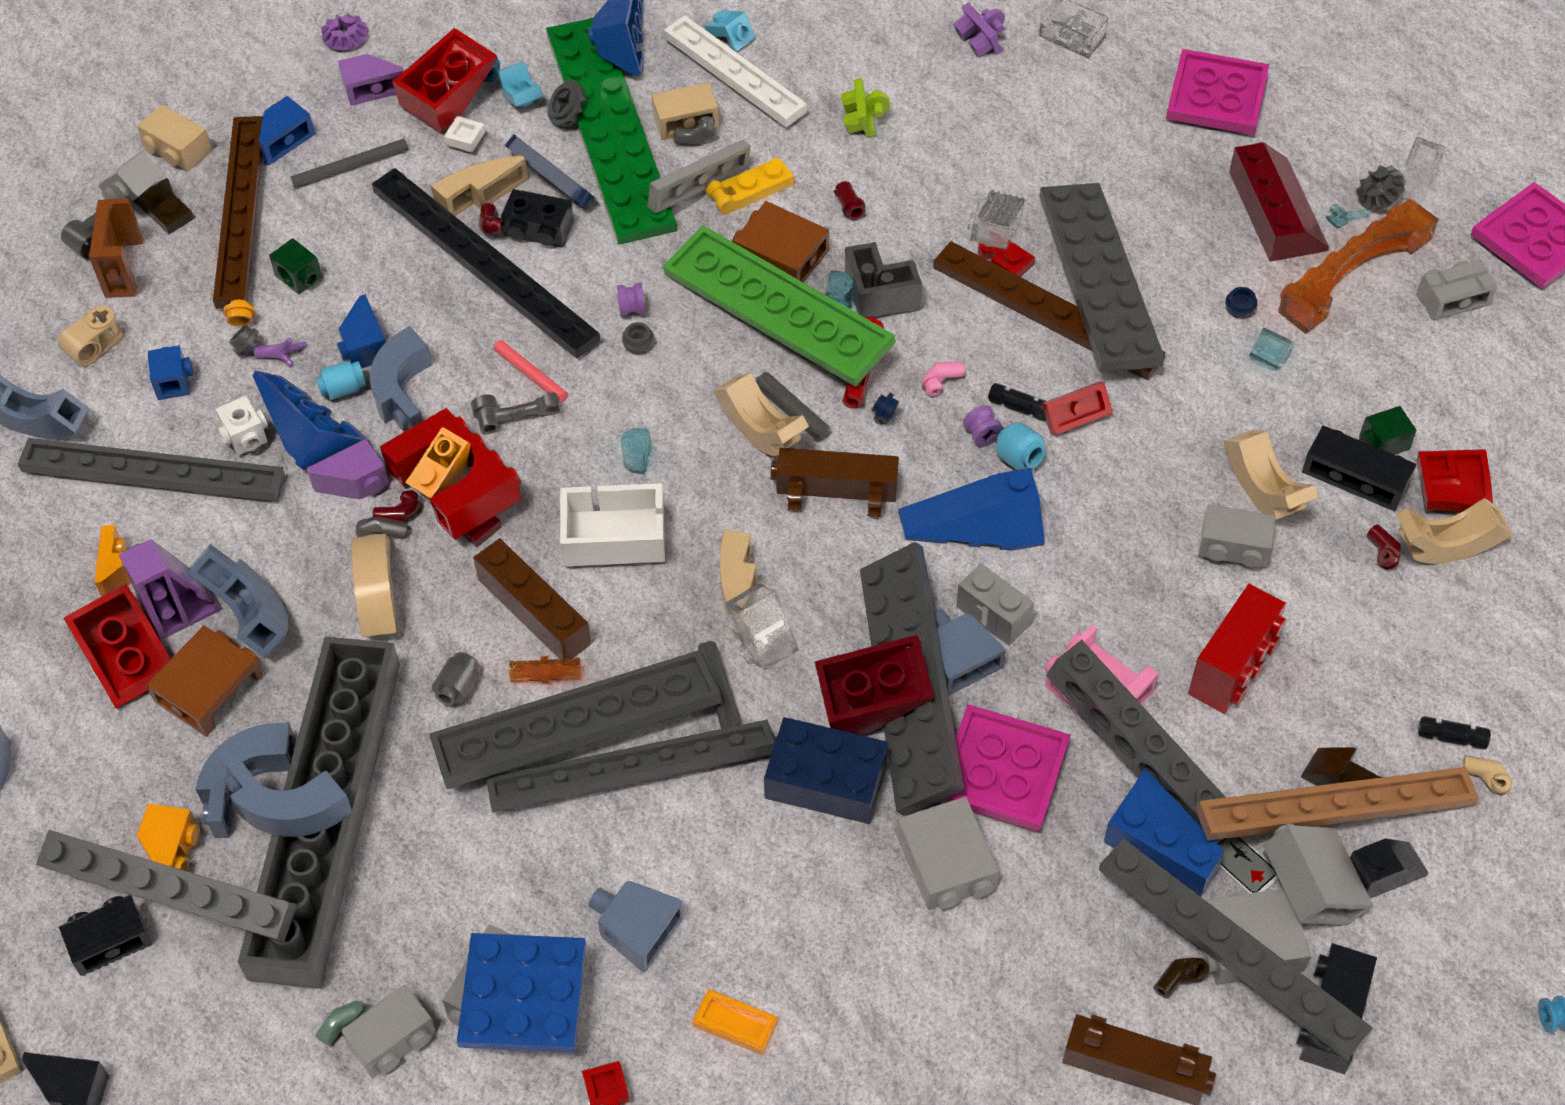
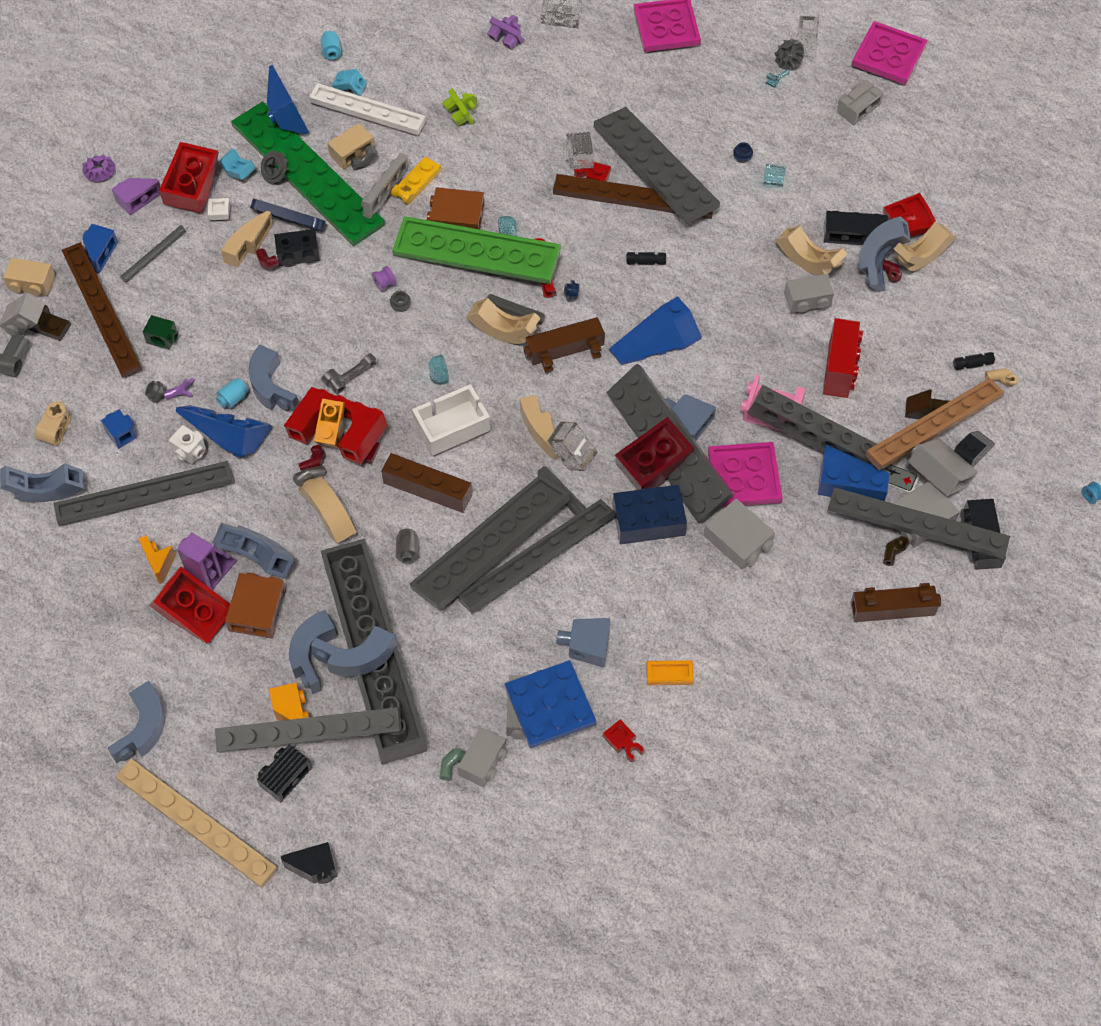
camera: 25 degrees left, 5 degrees up
(112, 231) = (44, 372): dark orange panel -> none
(239, 313) = (141, 375): light orange plate -> none
(350, 473) = (272, 448): medium lavender slope -> none
(360, 334) = (229, 361): blue slope -> none
(486, 263) = (278, 286): black plate -> none
(530, 370) = (343, 344): coral bar -> none
(545, 670) = (455, 520): clear orange pin -> none
(851, 205) = (486, 172): dark red pin -> none
(881, 287) = (531, 217): flat silver brick -> none
(934, 377) = (592, 256): bright pink arm -> none
(982, 425) = (634, 280): medium lavender wheel -> none
(995, 604) = (694, 382): light grey brick -> none
(1020, 446) = (662, 285): medium azure head -> none
(1077, 408) = (682, 250): red plate -> none
(1275, 203) = (733, 84): dark red slope -> none
(1374, 506) = (877, 247): none -> sand blue arch
(1389, 430) = (862, 200): dark green brick -> none
(1401, 230) = (813, 76): clear orange arch -> none

